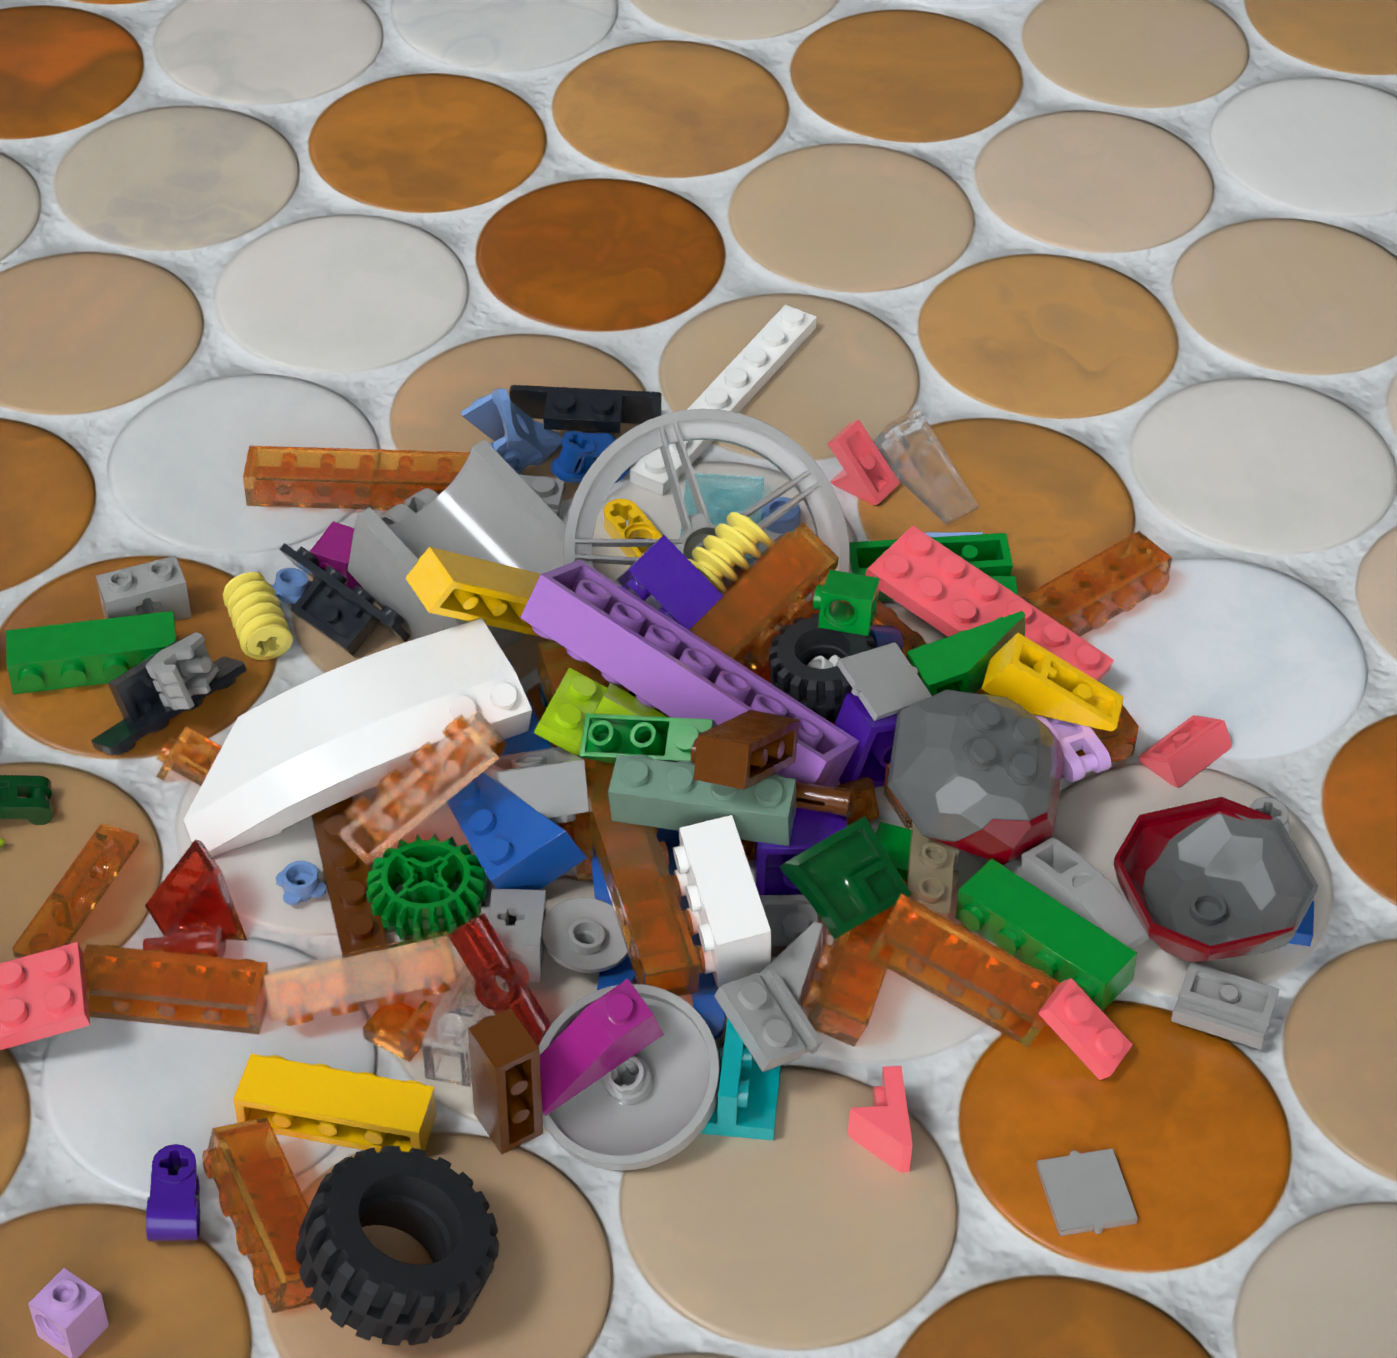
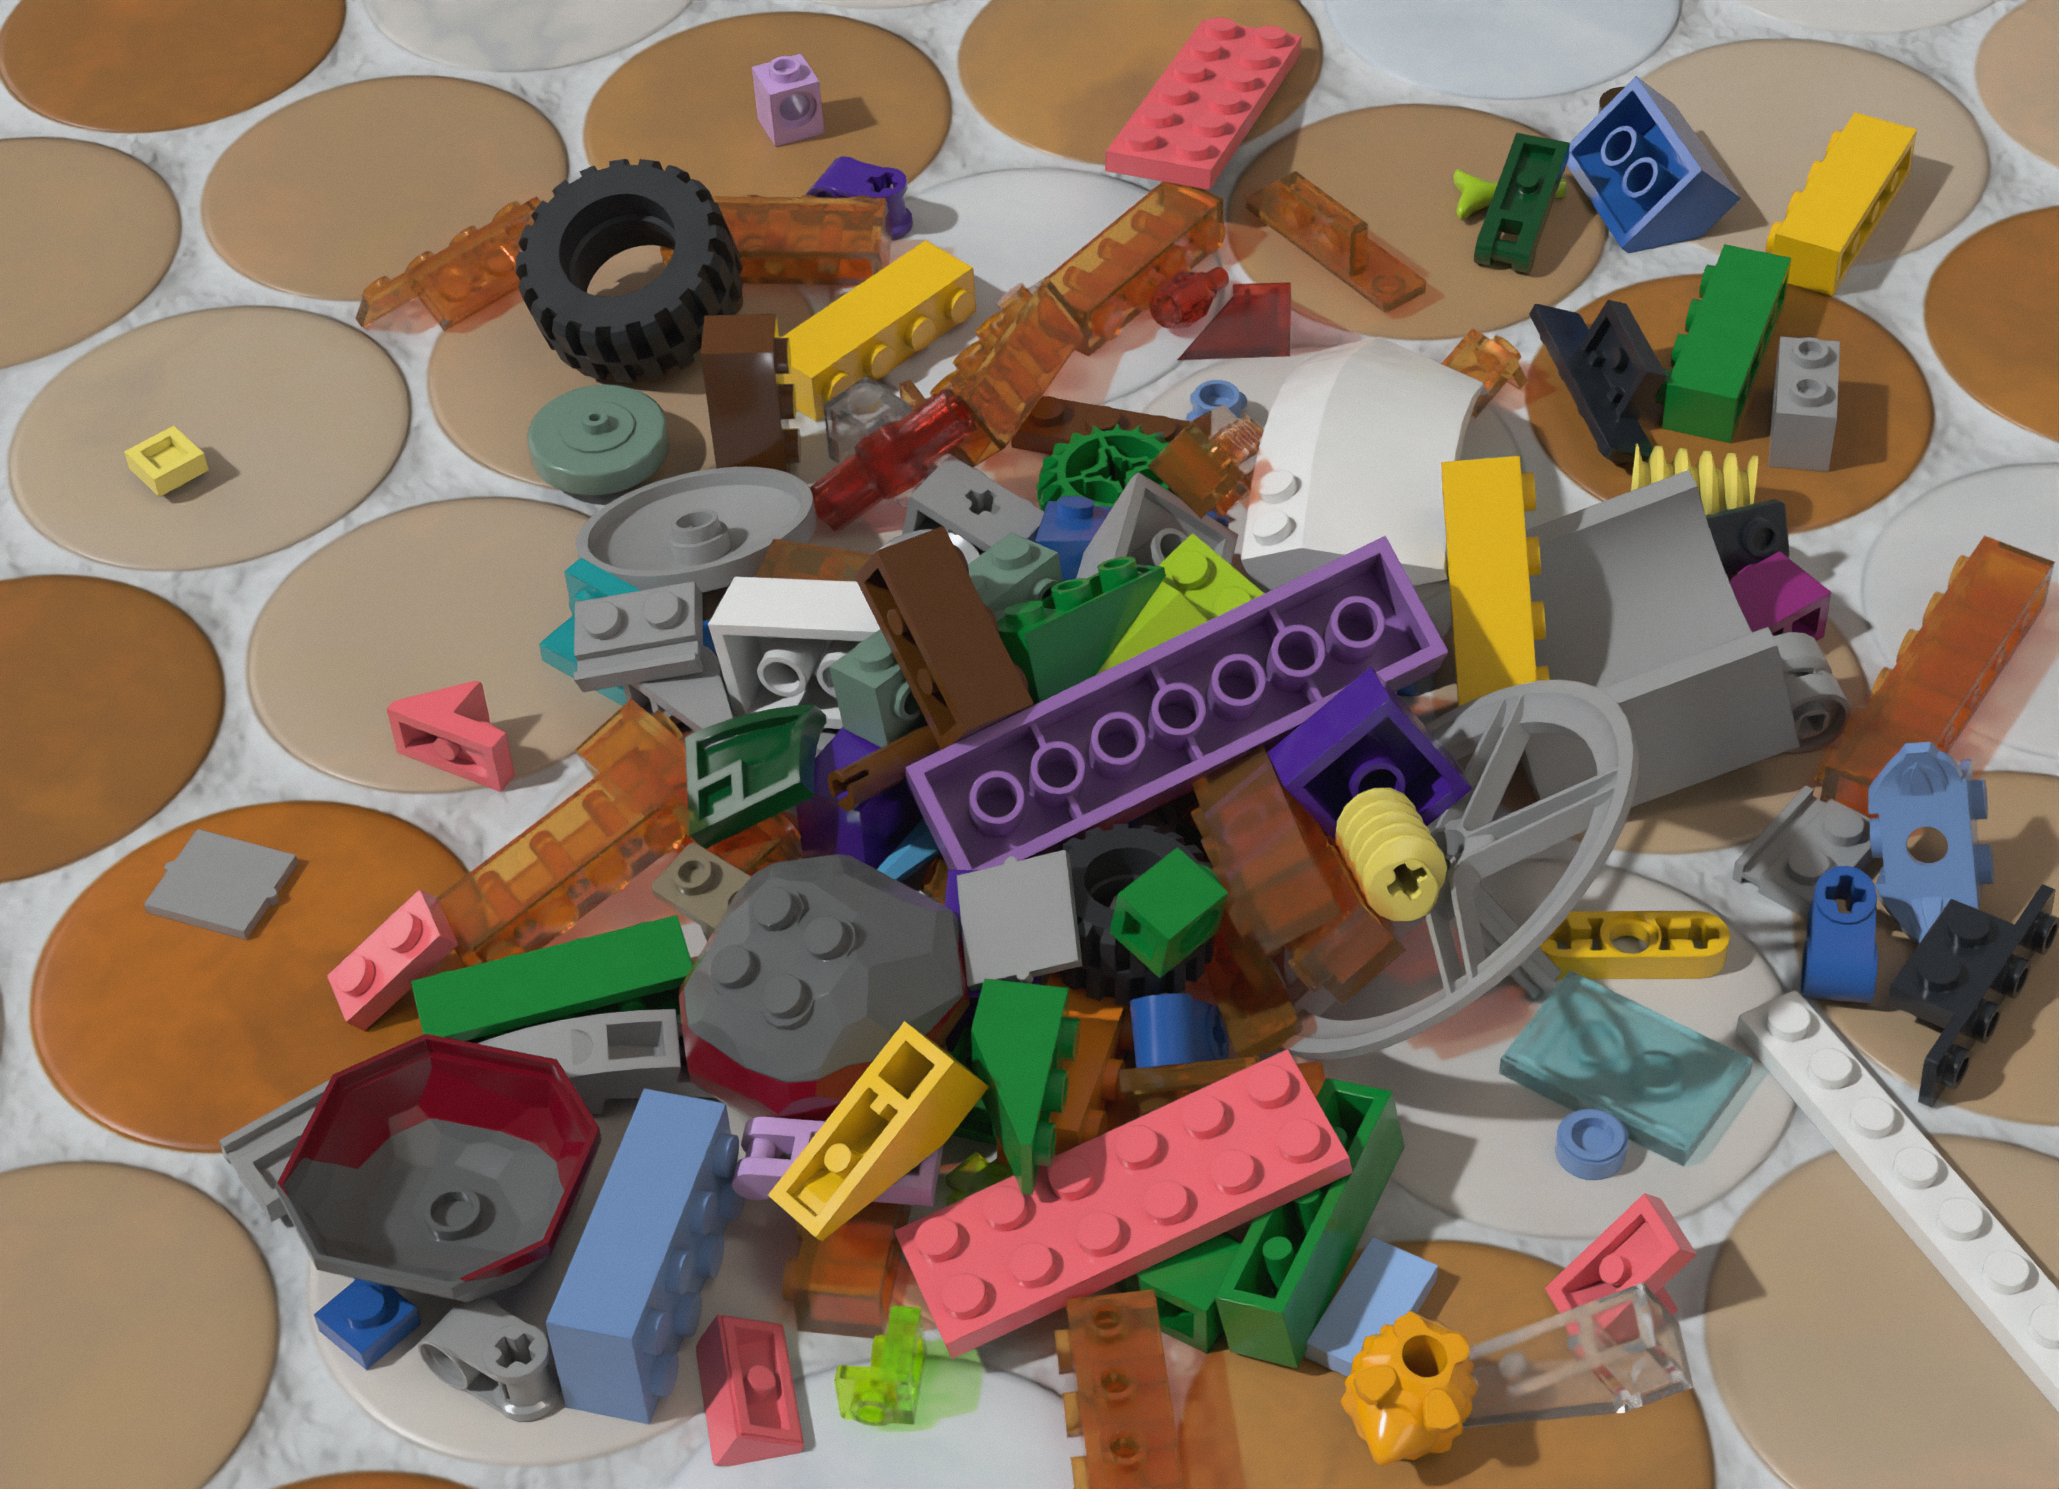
camera: 125 degrees right, 0 degrees up
(182, 672) = (1604, 364): light grey hand -> none
(558, 1210) = (598, 439): none -> sand green wheel
(595, 1044) = (728, 493): magenta slope -> none
(990, 500) = (1410, 1389): none -> light orange animal
(1140, 684) = (892, 1384): none -> clear neon green bracket
(1166, 777) = (646, 1258): none -> medium blue brick

